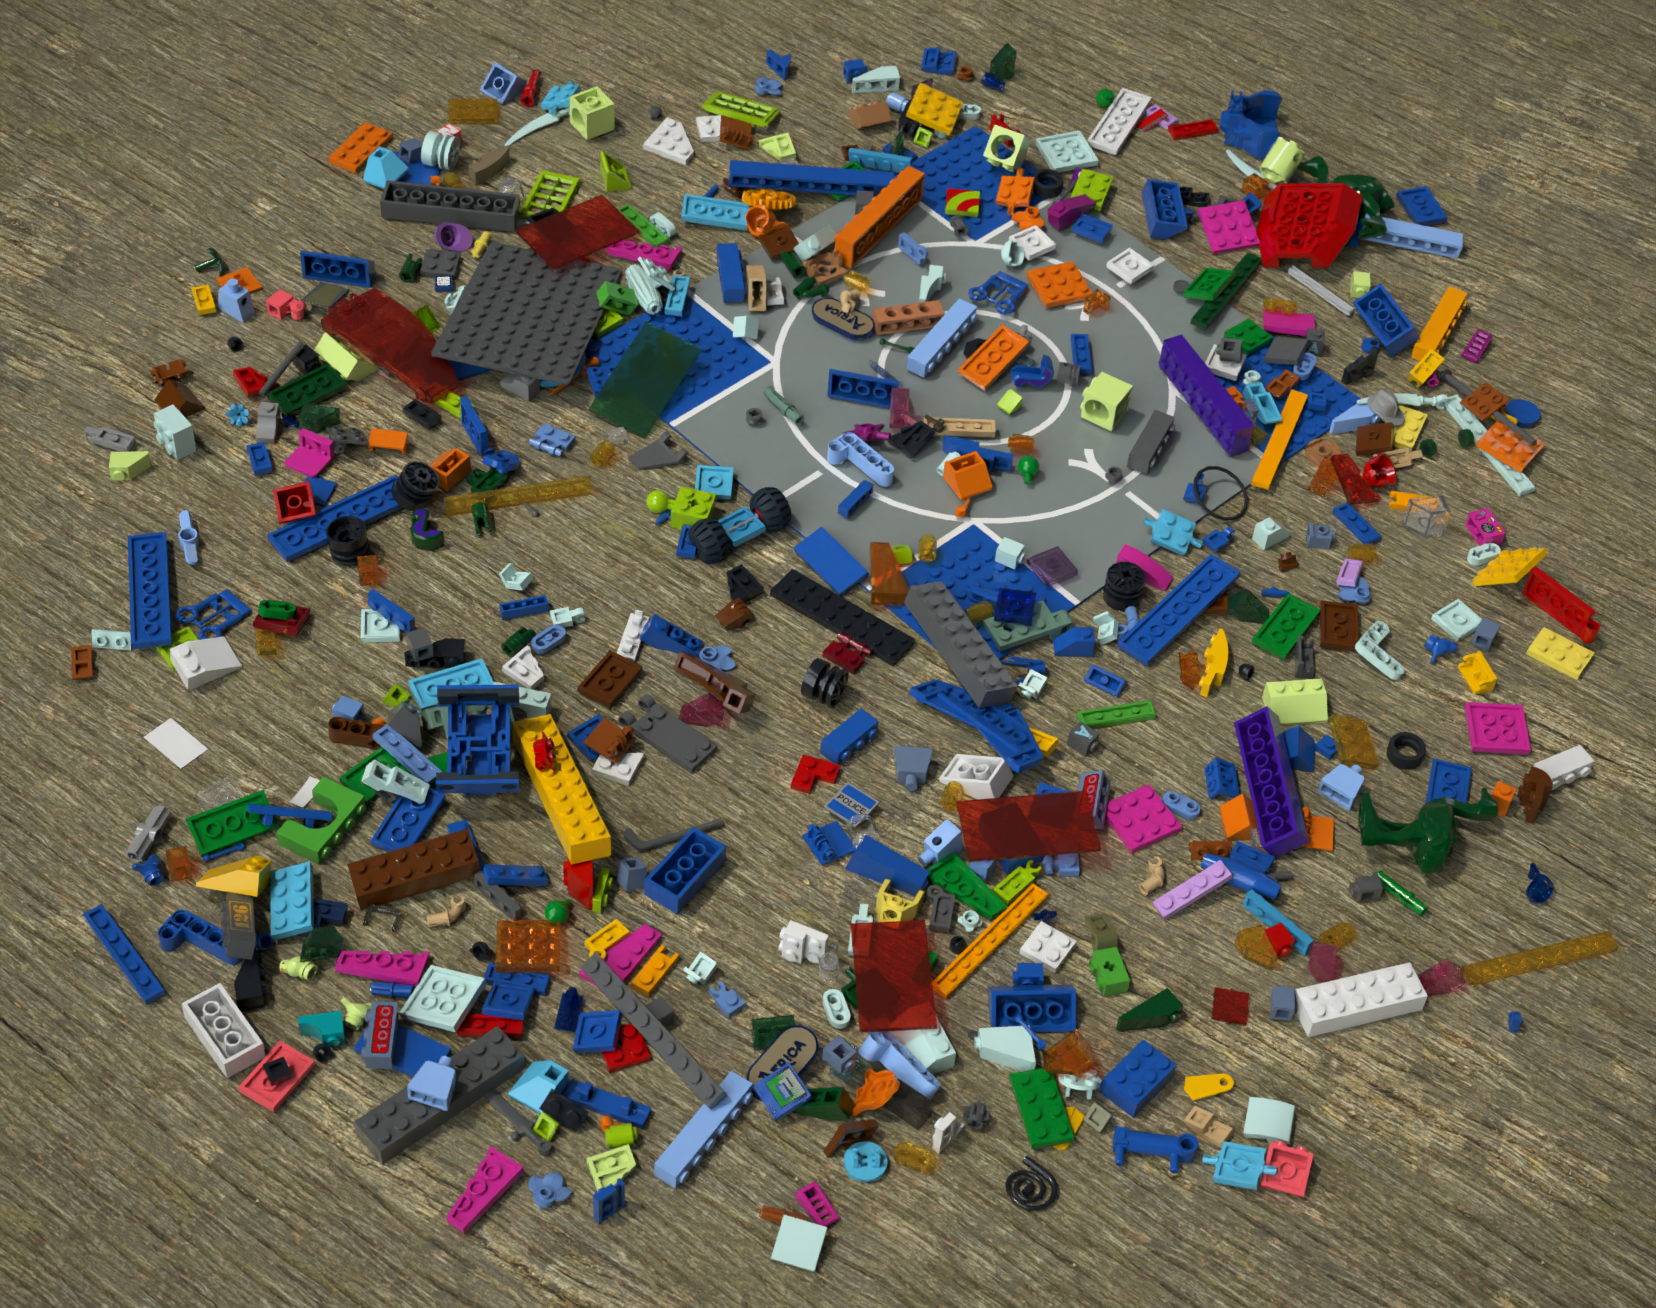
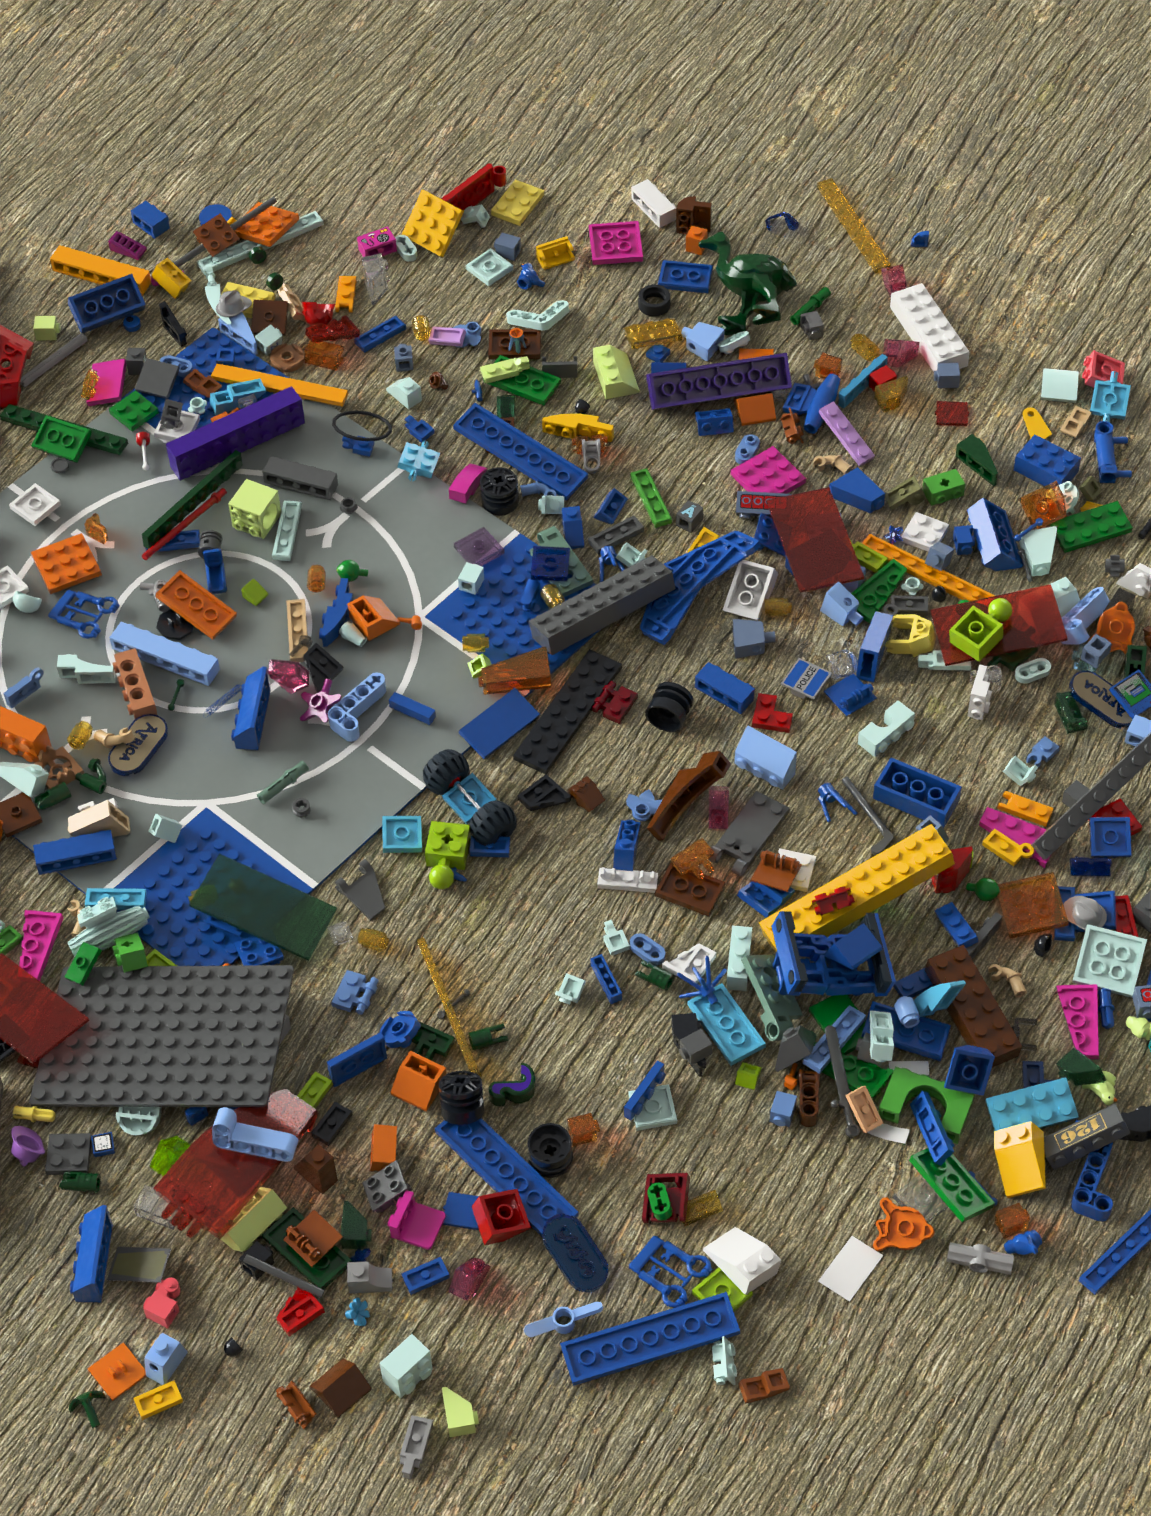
camera: 90 degrees left, 5 degrees up
(198, 776) = (902, 1227): none -> orange tile
(247, 483) = (468, 1278): none -> clear pink slope
(248, 552) = (575, 1252): none -> clear blue tile
(309, 385) = (312, 1238): none -> dark orange hinge
(327, 766) = (864, 1109): none -> light nougat plate
(337, 841) = (969, 1069): none -> blue slope
(357, 754) = (841, 1080): none -> dark grey sword
(371, 820) = (918, 1067): none -> white sticker
(374, 394) = (318, 1169): none -> reddish brown slope
(395, 333) = (251, 1139): none -> light blue beam
(421, 813) = (907, 1011): none -> light blue brick
(423, 829) = (937, 997): none -> medium azure slope
(477, 753) = (854, 947): none -> blue slope
(485, 665) = (706, 988): none -> blue plant
(504, 986) = (1085, 911): none -> light grey piece
(612, 270) = (83, 963): none -> green plate
(636, 678) = (692, 856): none -> clear orange hinge
(701, 802) = (829, 795): none -> blue plant
(750, 754) = (766, 758): none -> light blue slope
(785, 874) = (876, 738): none -> light aqua arch
(878, 942) = (979, 632): none -> lime brick
(1004, 945) = (939, 556): none -> sand blue brick
(1064, 677) = (616, 534): none -> dark grey plate
(1087, 431) = (287, 530): none -> light aqua tile
(1097, 358) = (215, 498): none -> red bar
(1110, 891) = (858, 491): none -> blue slope
(1125, 363) = (192, 499): none -> dark green plate
(1167, 663) = (591, 452): none -> light grey piece
(1206, 339) = (143, 440): none -> hinge
(1295, 607) = (504, 369): none -> yellowish green hinge
(1300, 893) = (827, 365): none -> clear orange brick
(1335, 613) = (516, 336): none -> flat silver piece
(1342, 434) = (268, 339): none -> light aqua brick
(1342, 814) = (737, 340): none -> light aqua plate
(1511, 360) = (150, 219): none -> blue brick
(1533, 614) = (474, 214): none -> light aqua bracket

